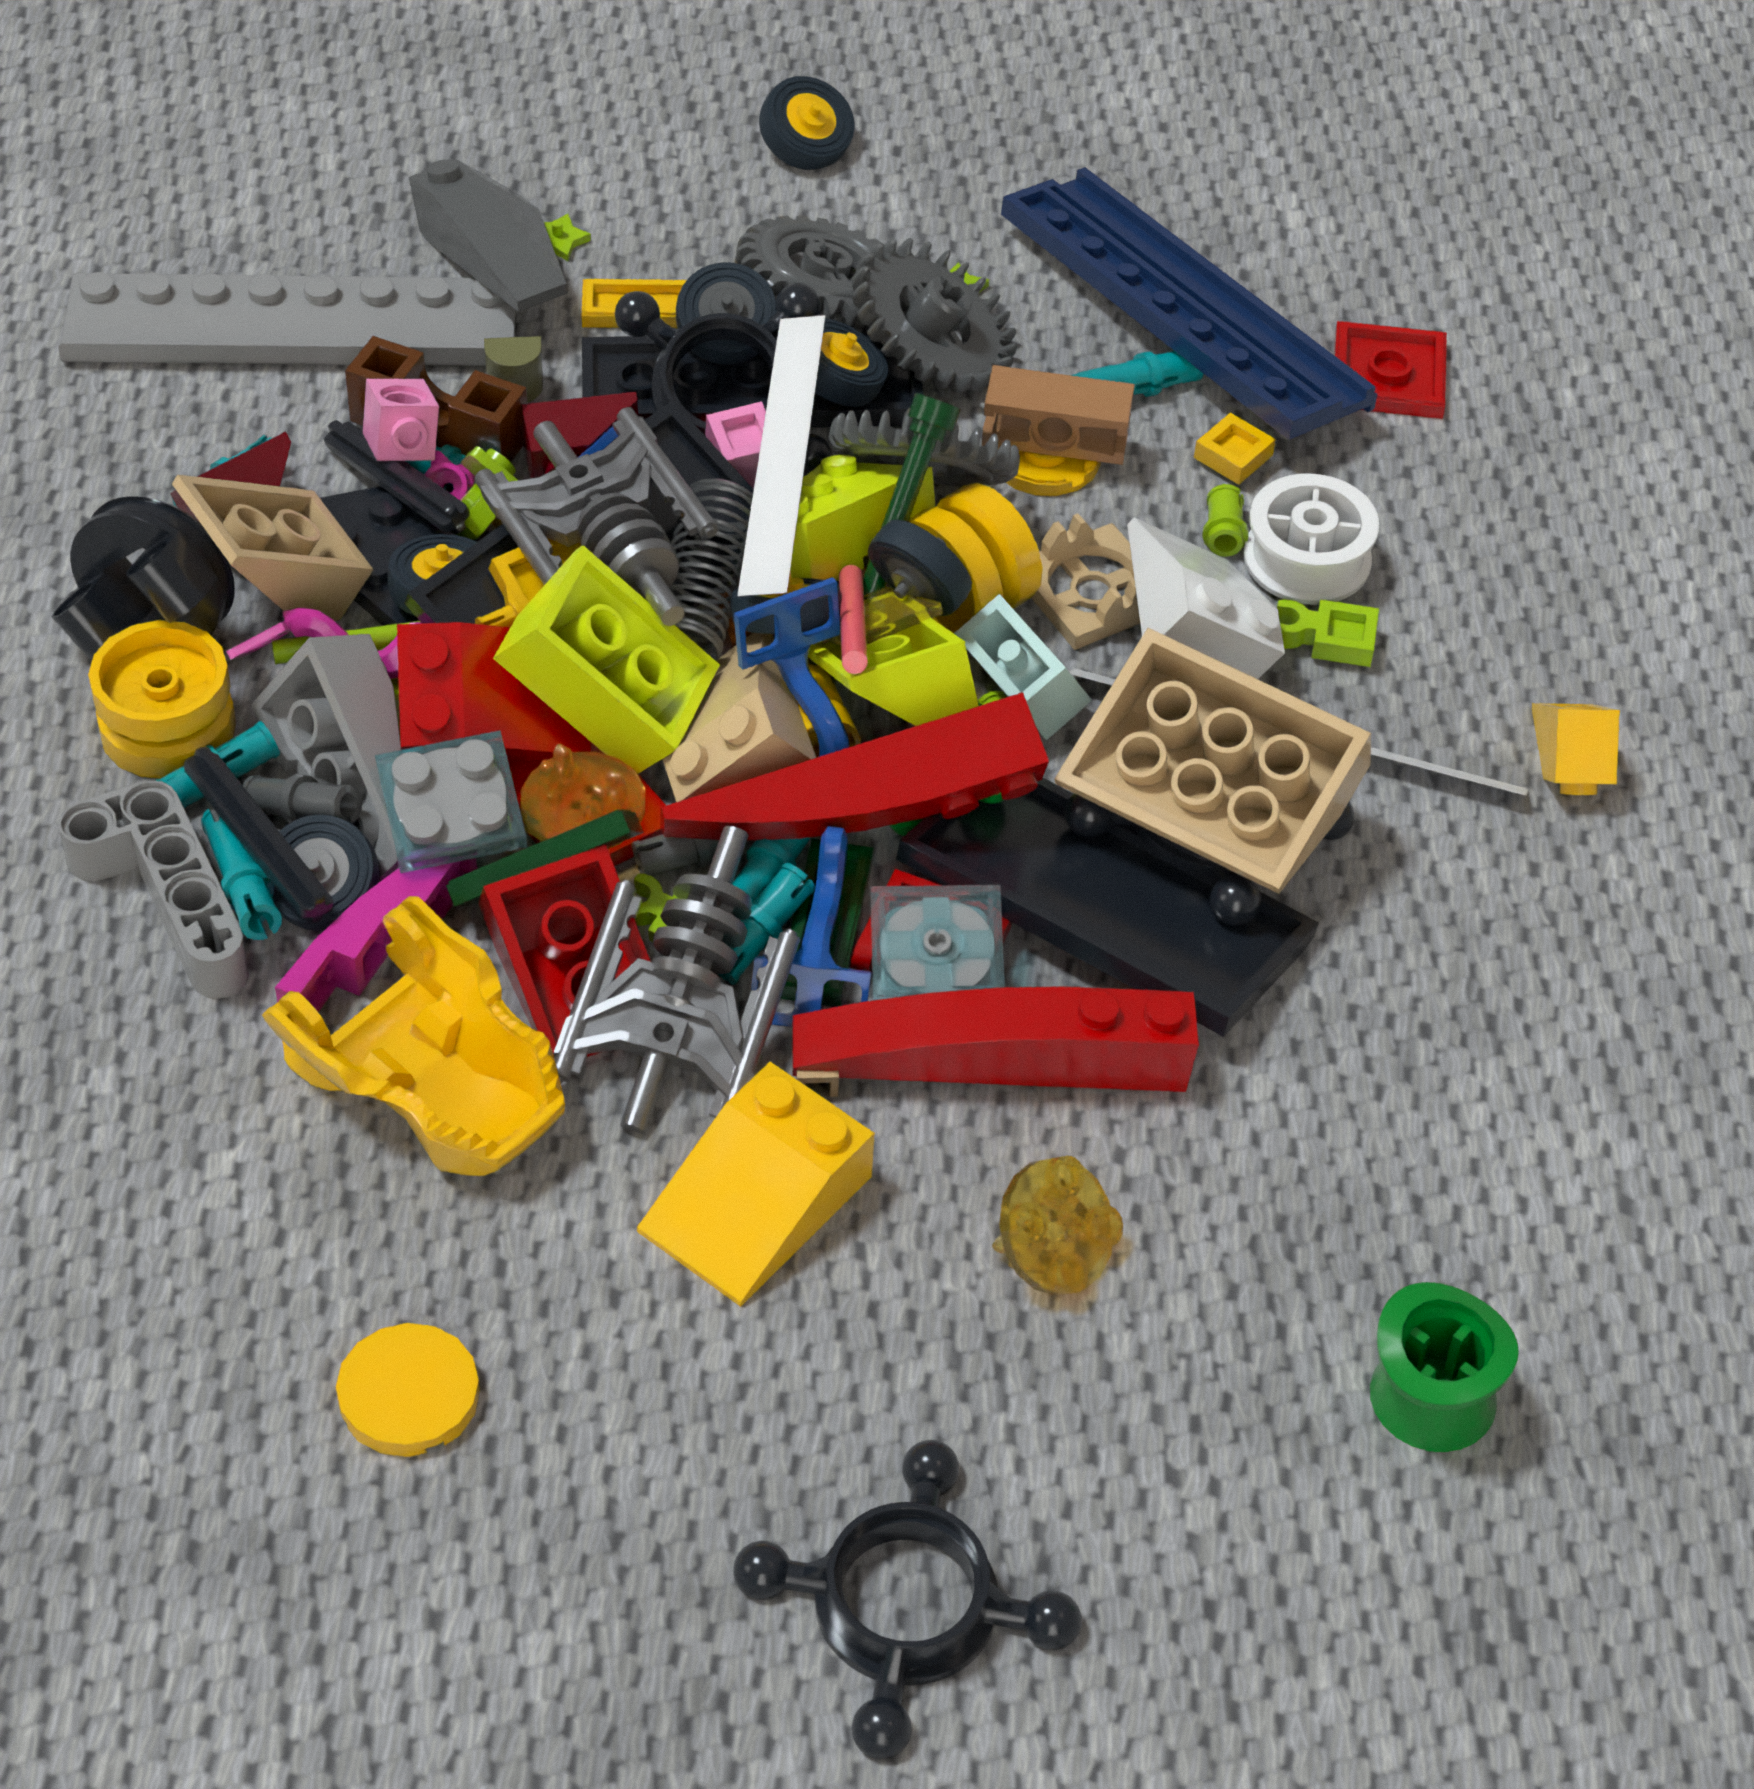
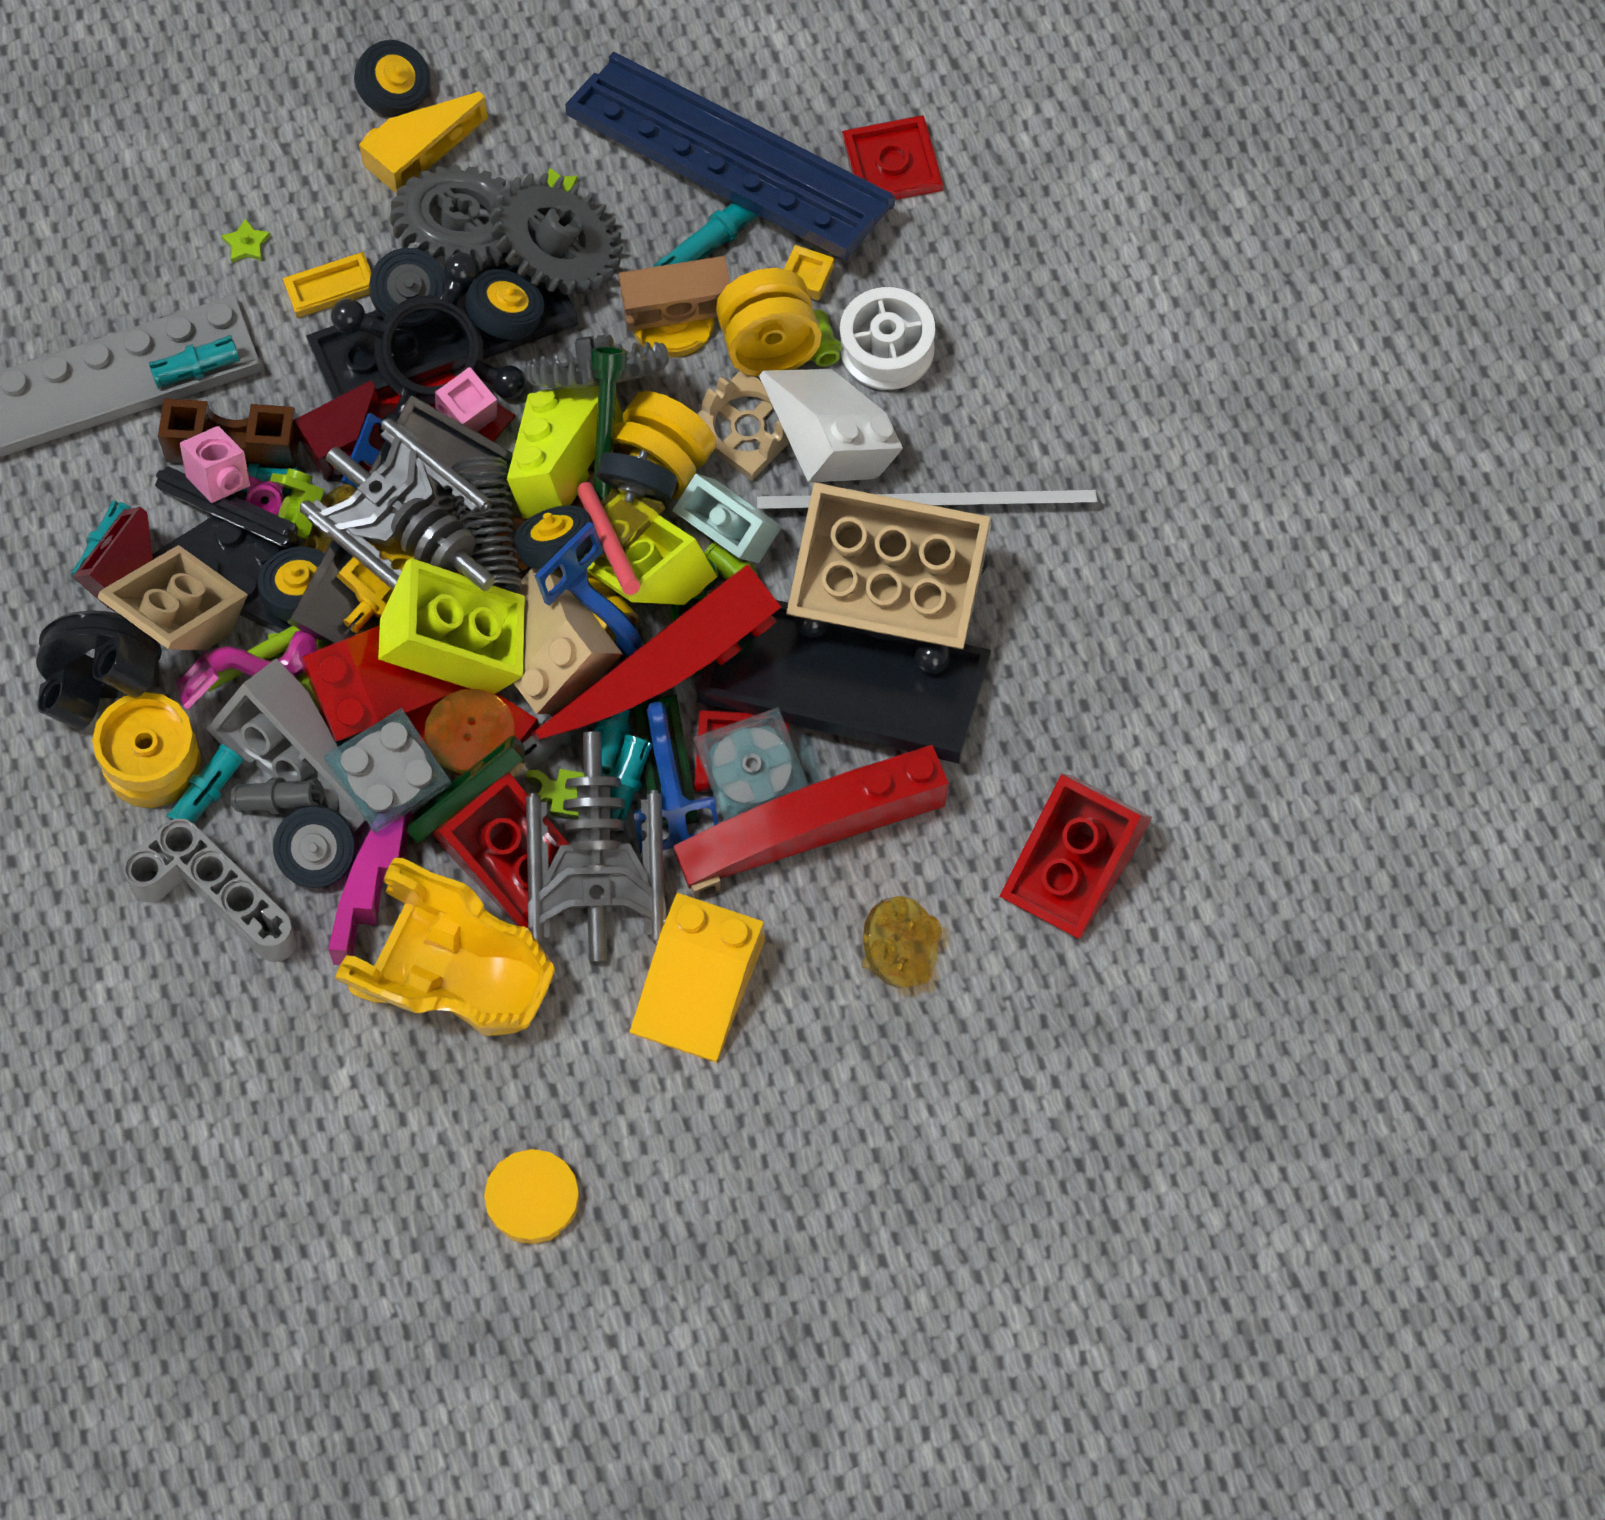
camera: 15 degrees left, 15 degrees up
(243, 880) = (271, 875): teal pin -> none
(258, 835) = (265, 838): black axle -> none
(432, 322) = (194, 361): none -> teal pin
(488, 232) = (205, 266): dark grey wedge -> none
(516, 361) = (267, 379): olive brick -> none
(782, 458) = (507, 416): white sticker -> none
(818, 184) = (420, 138): none -> yellow slope
(882, 1724) = (910, 1312): black piece -> none
(1163, 466) = (768, 321): none -> yellow wheel
(1335, 631) = (929, 407): lime plate -> none
(1348, 1196) = (1074, 855): none -> red slope
(1440, 1366) = (1172, 958): green hat -> none
(1577, 745) = (1118, 447): yellow slope -> none

